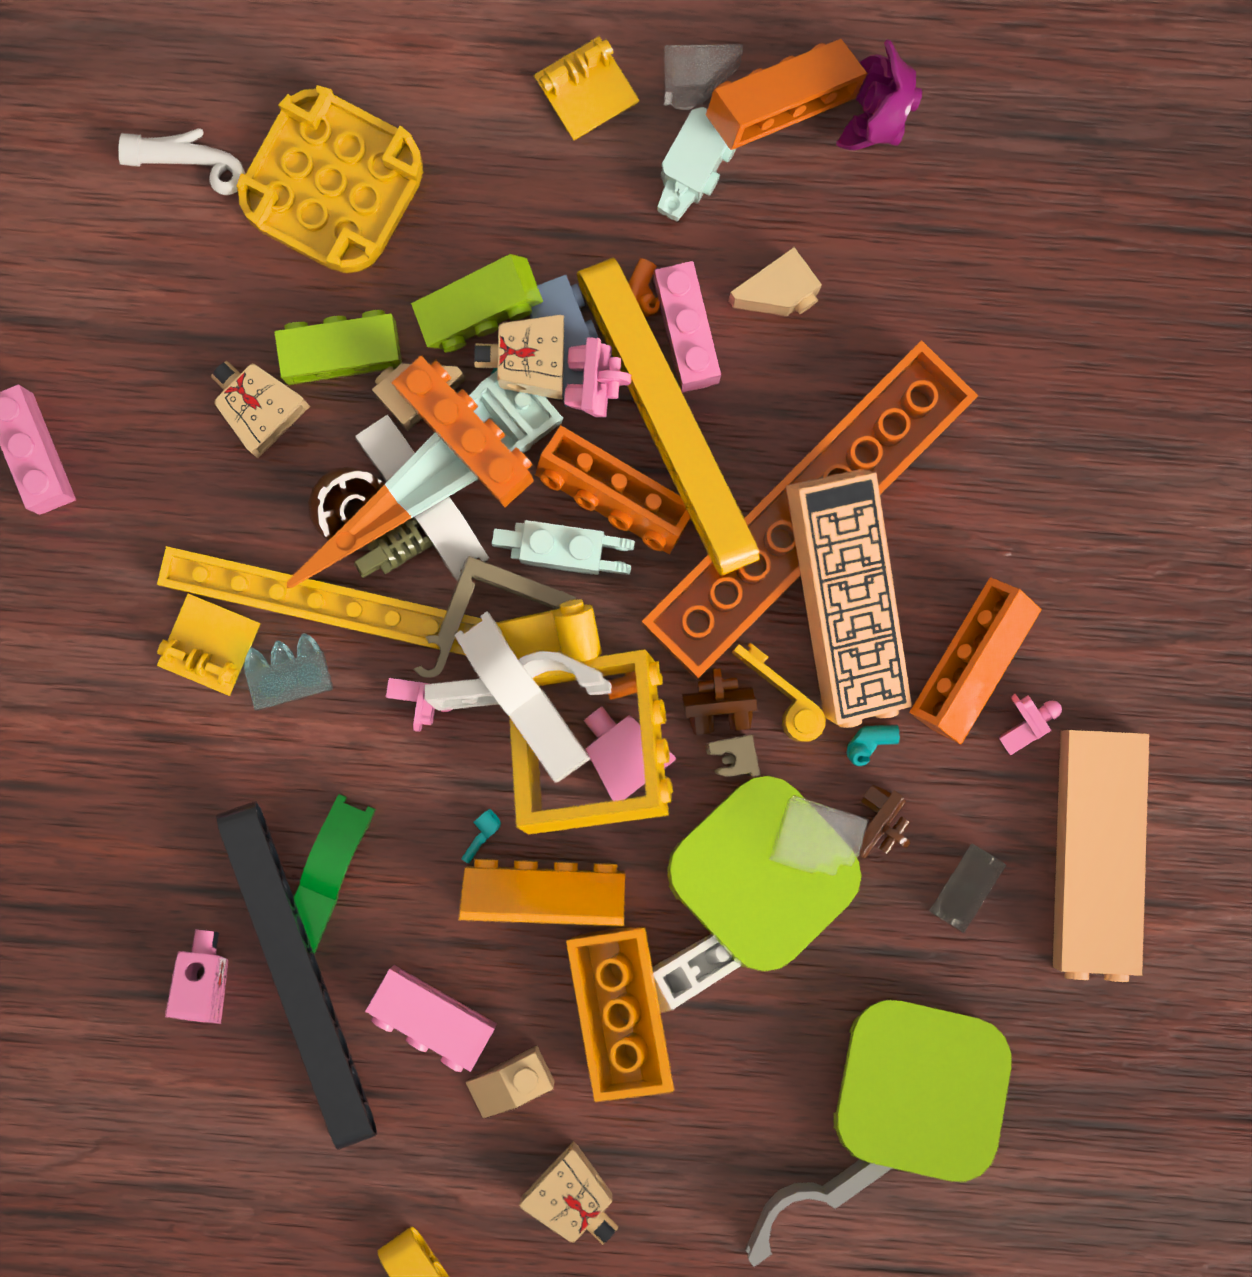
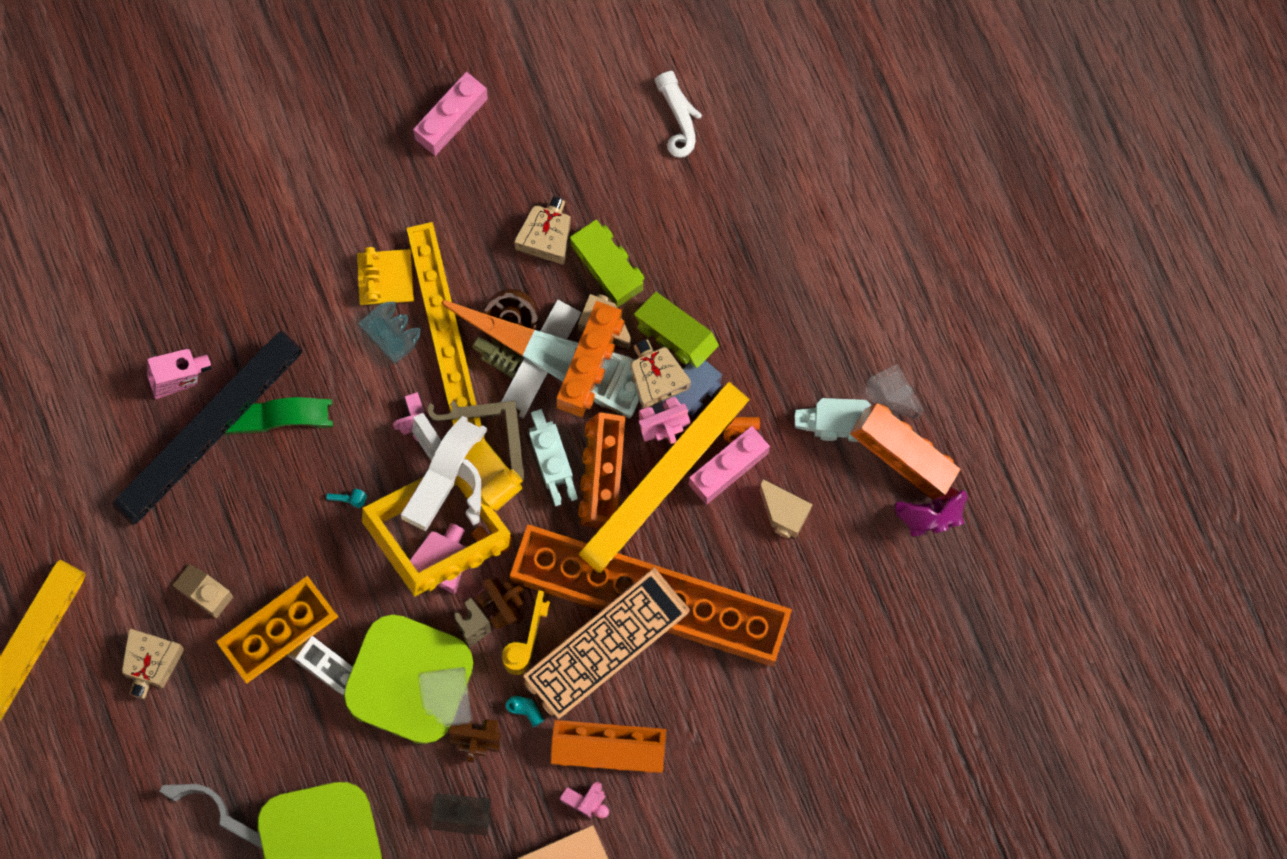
camera: 65 degrees right, 10 degrees down
(331, 180) = (710, 208): yellow tile -> none
(430, 1019) = (218, 521): bright pink brick -> none
(543, 895) = (329, 550): light orange slope -> none
(586, 87) = (850, 331): yellow hinge -> none

